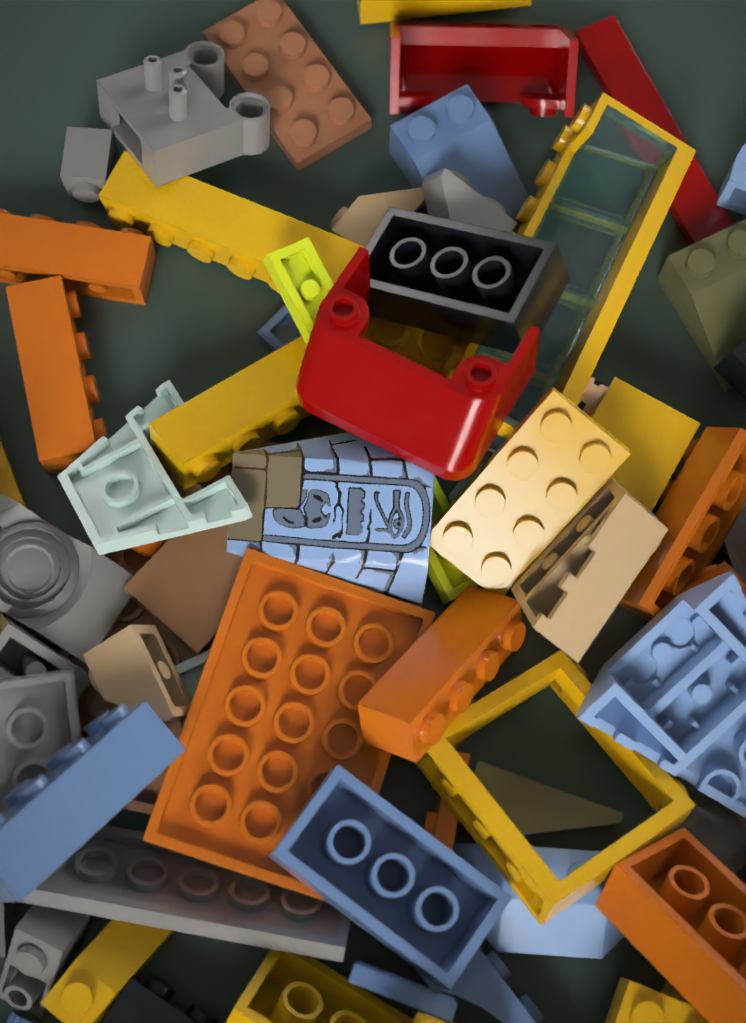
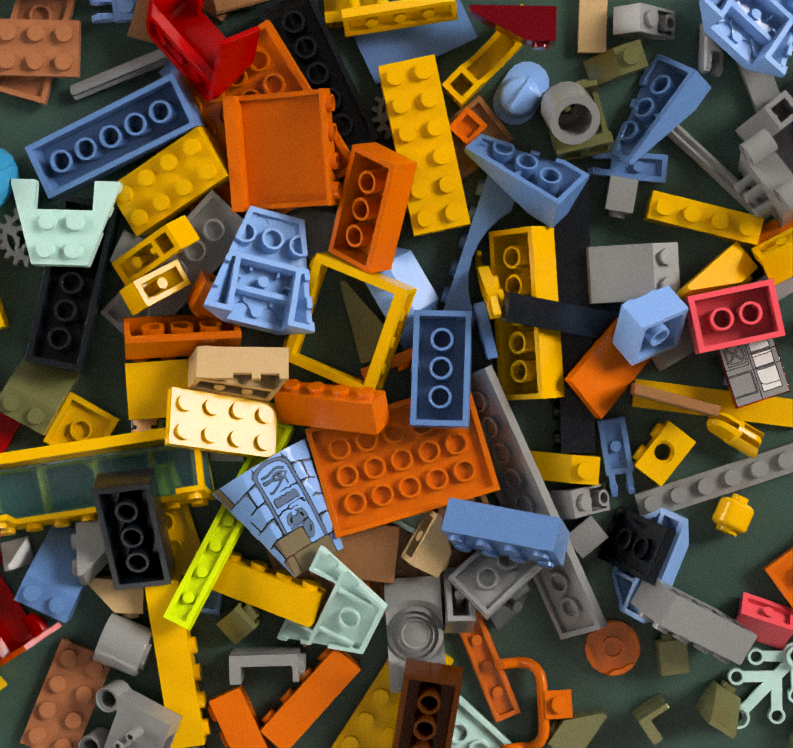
camera: 125 degrees left, 15 degrees up
(153, 346) = (265, 656): none -> light grey panel
(226, 345) = (240, 621): none -> olive slope
(307, 178) = (124, 645): none -> light grey piece
(397, 402) = (225, 512): red windscreen -> none
(524, 136) = (16, 553): none -> light grey slope
(649, 325) = (80, 421): none -> yellow plate

